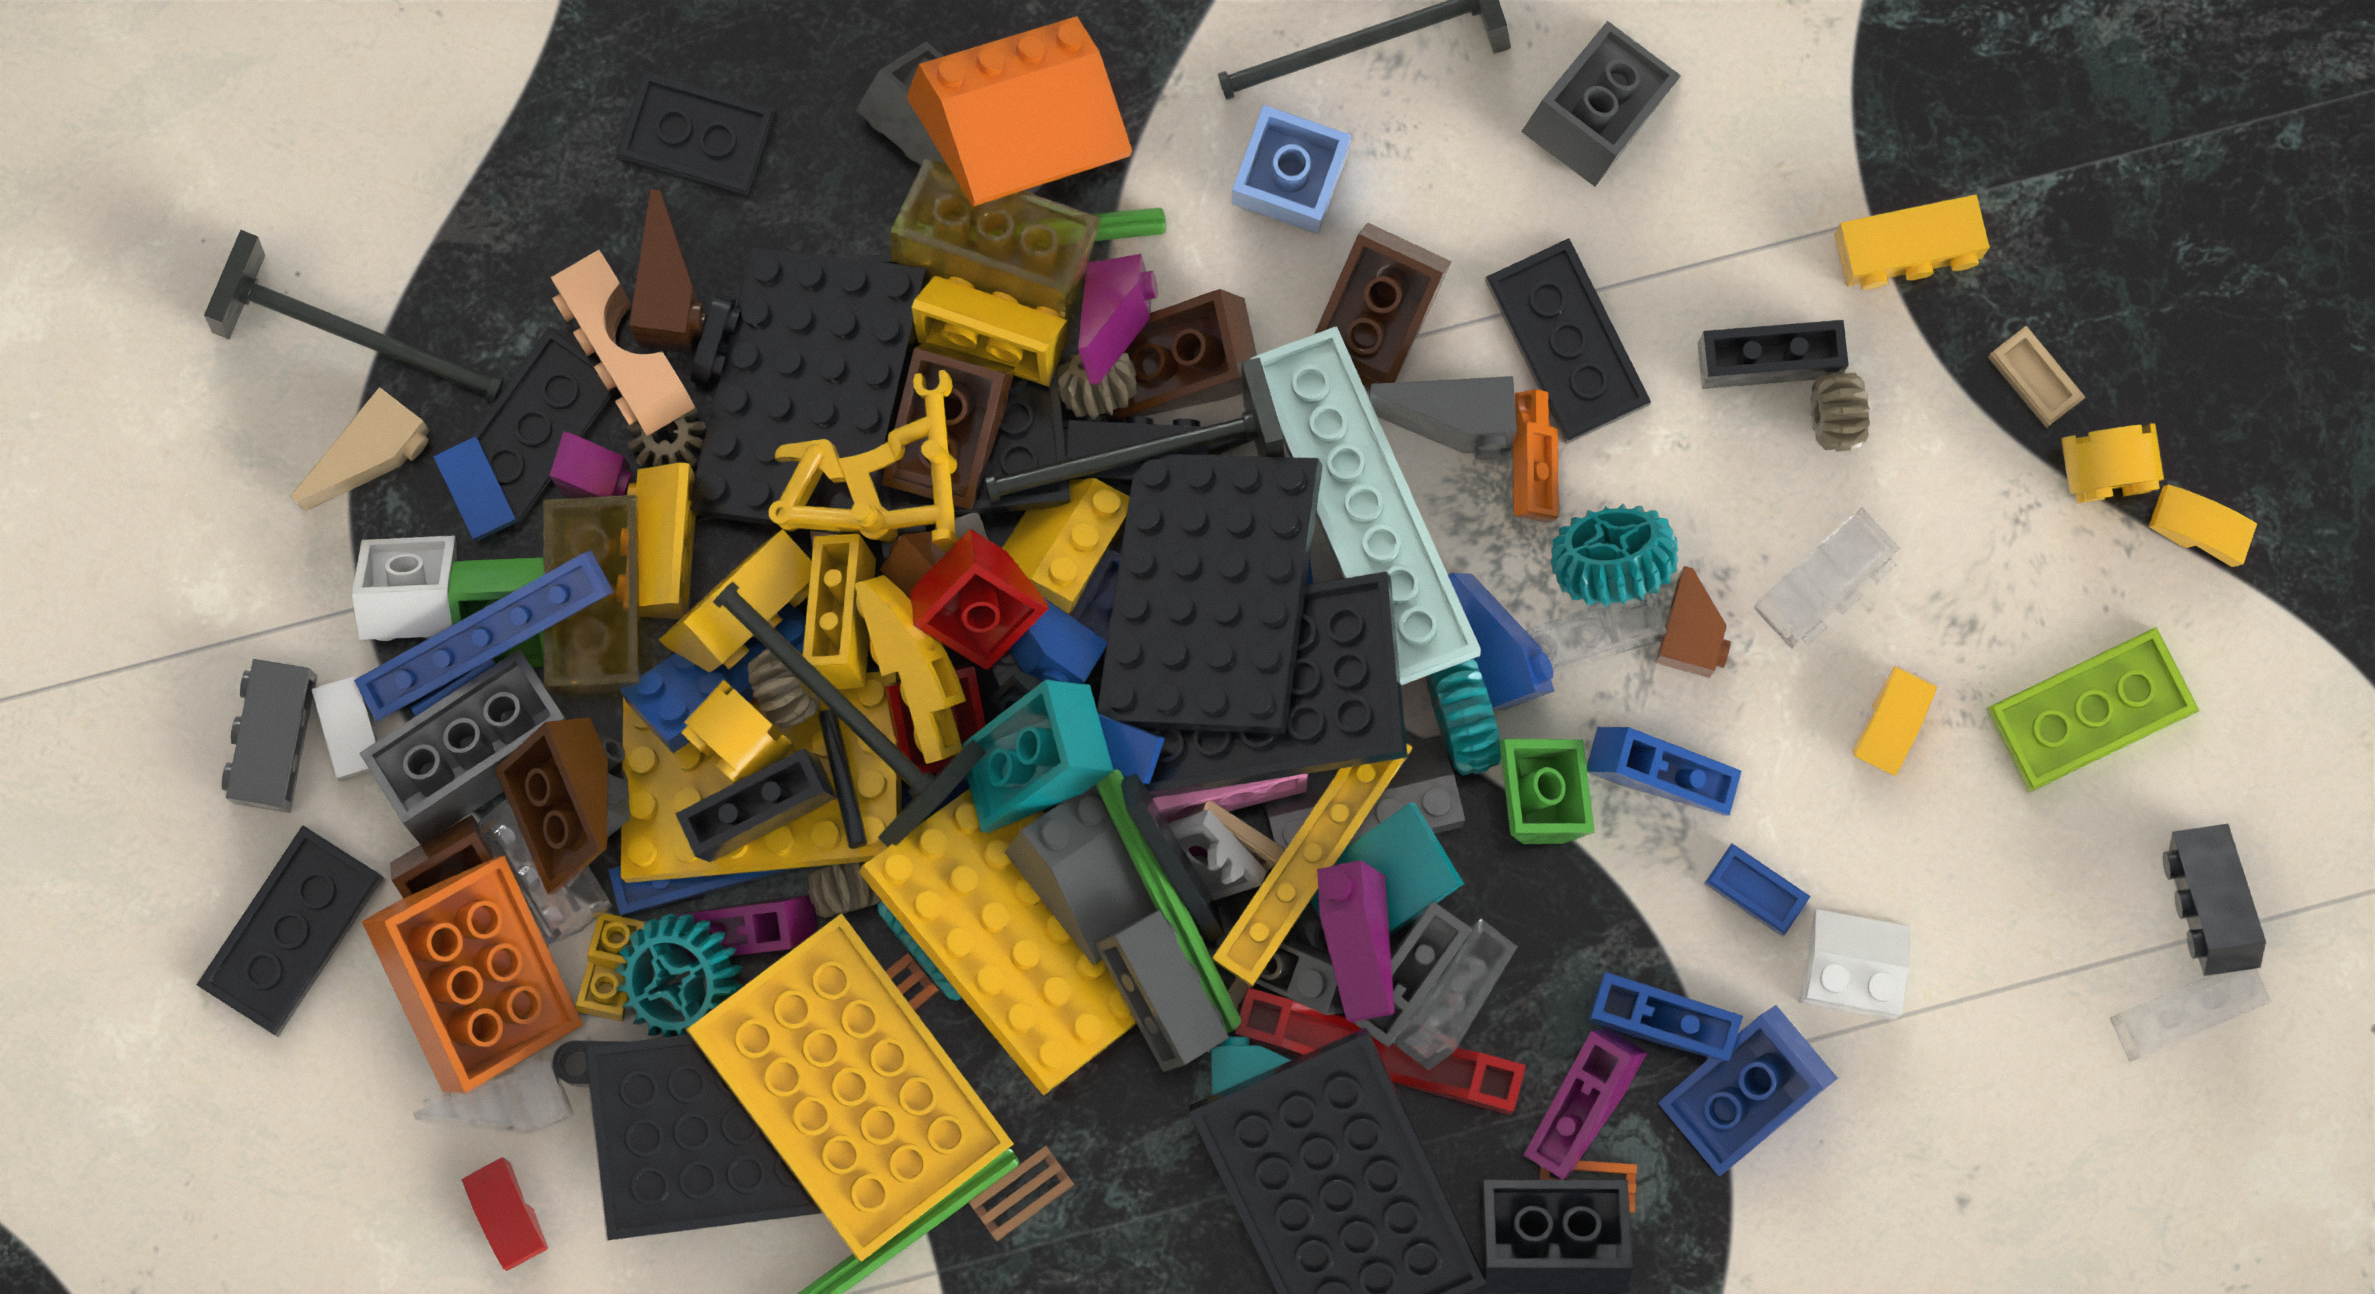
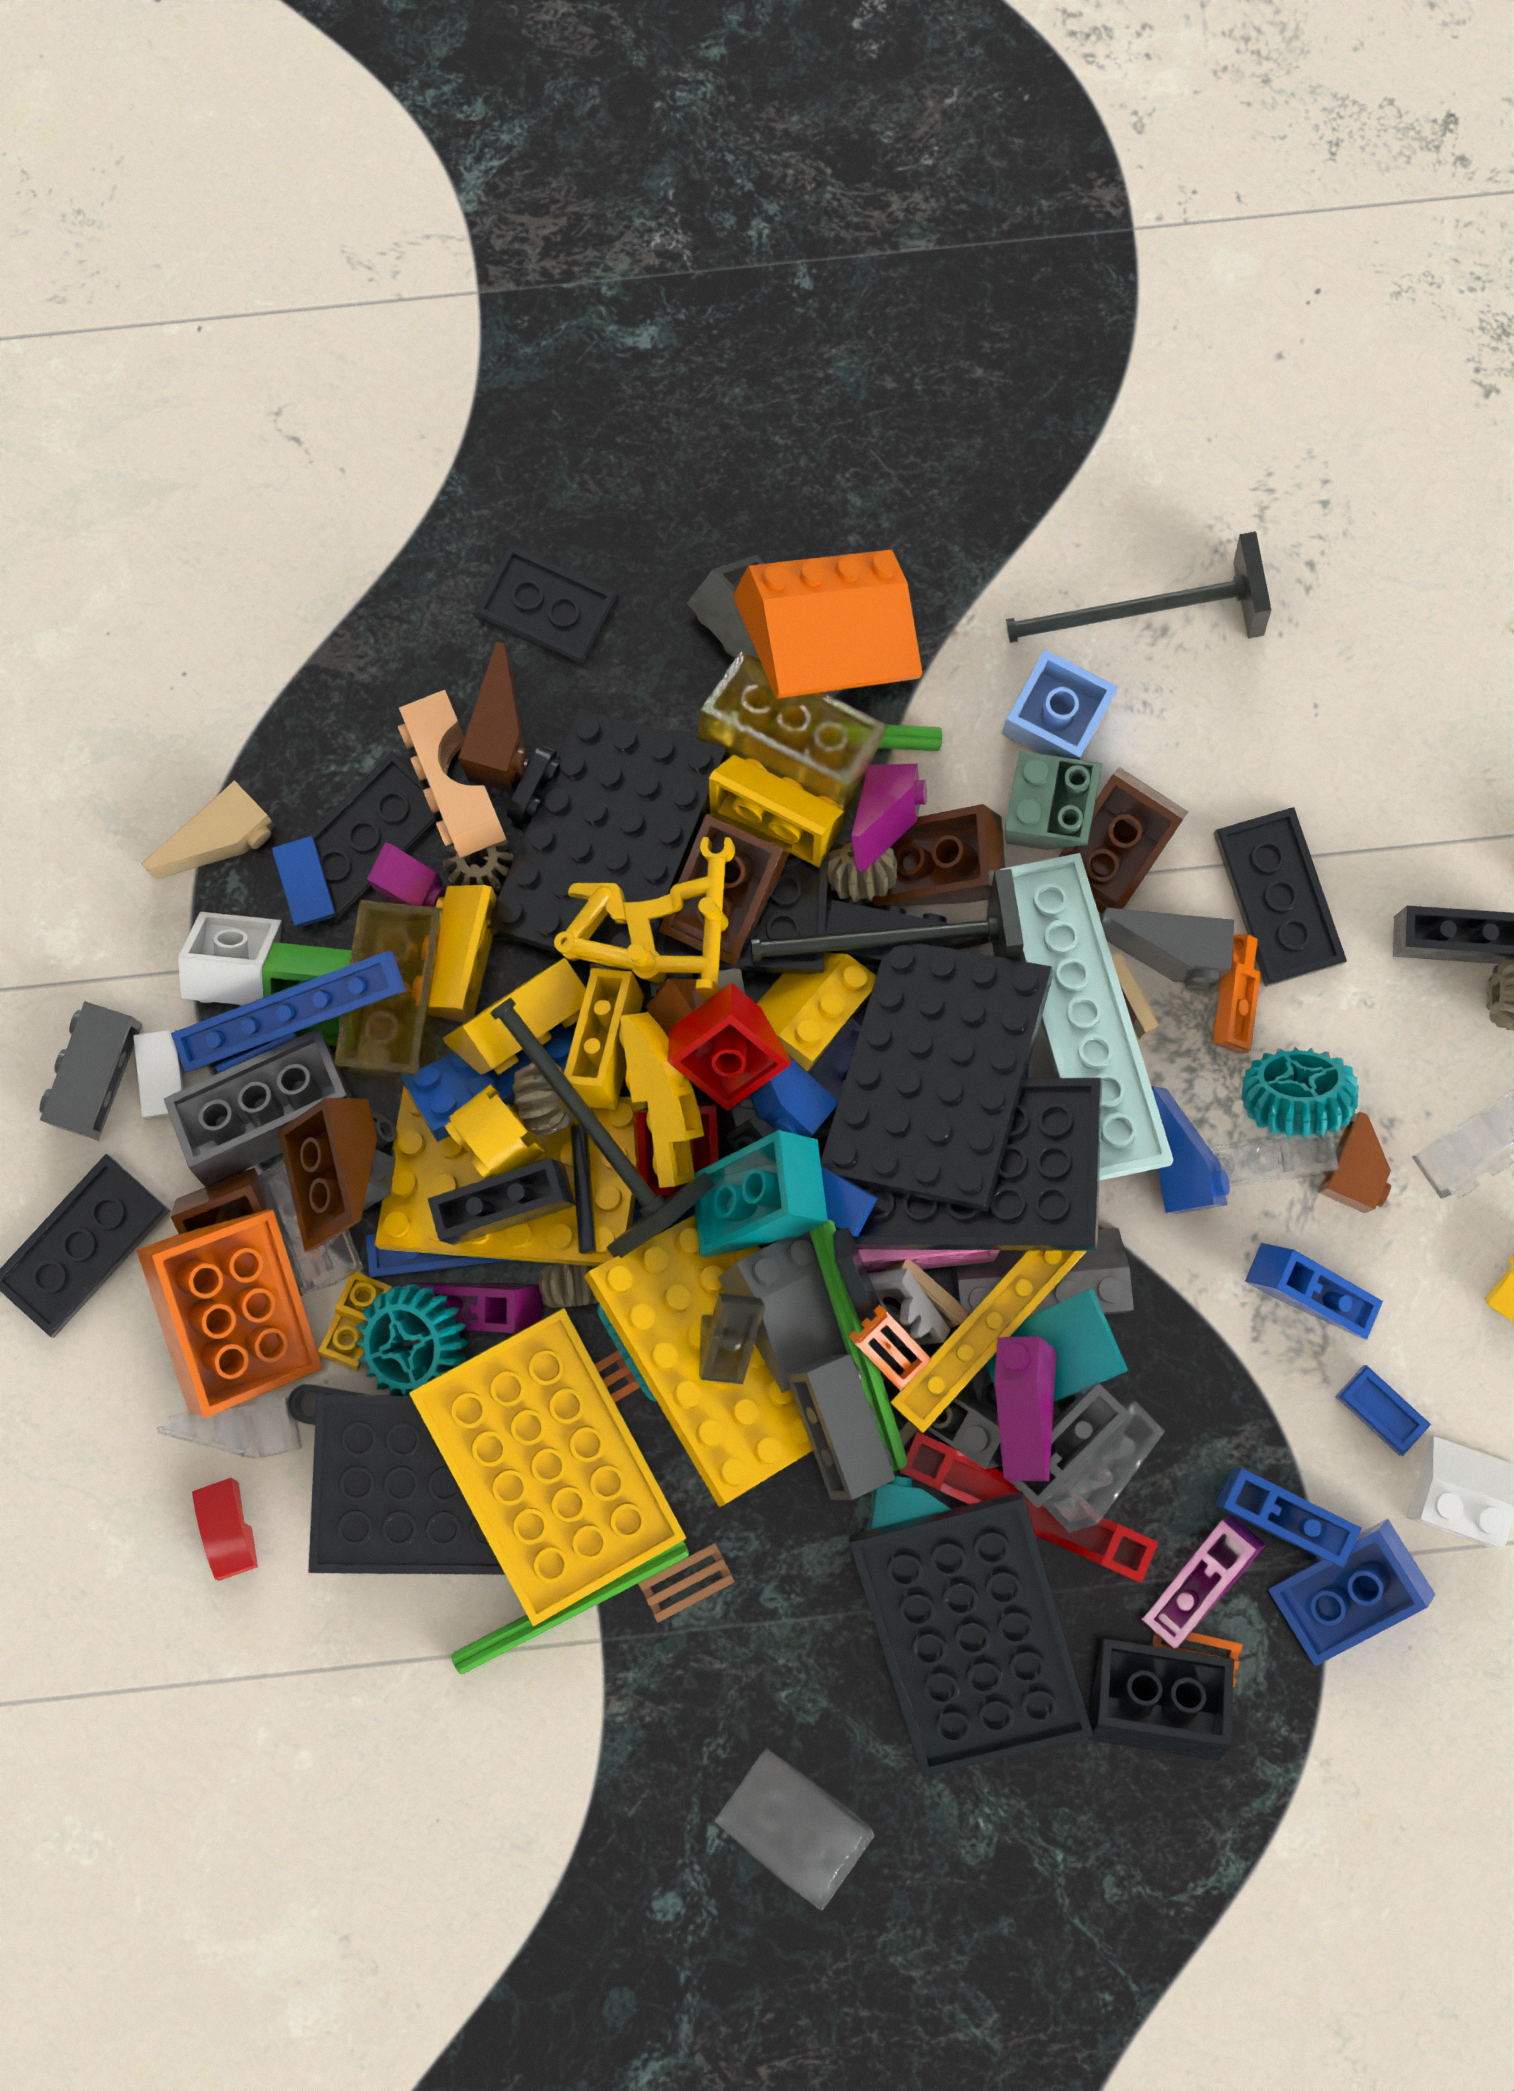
camera: 10 degrees right, 0 degrees up
(240, 286) = (127, 673): pearl dark grey tile -> none
(1026, 912) = (729, 1338): none -> clear smoke slope
(1179, 880) = (872, 1329): none -> tile
(1296, 273) = (1051, 801): none -> sand green slope
(1418, 479) = (1140, 1012): none -> tan tile
(1465, 717) = (1146, 1218): teal gear -> none
(1546, 790) = (1211, 1293): bright green slope -> none
(1600, 103) = (1337, 694): dark grey slope -> none

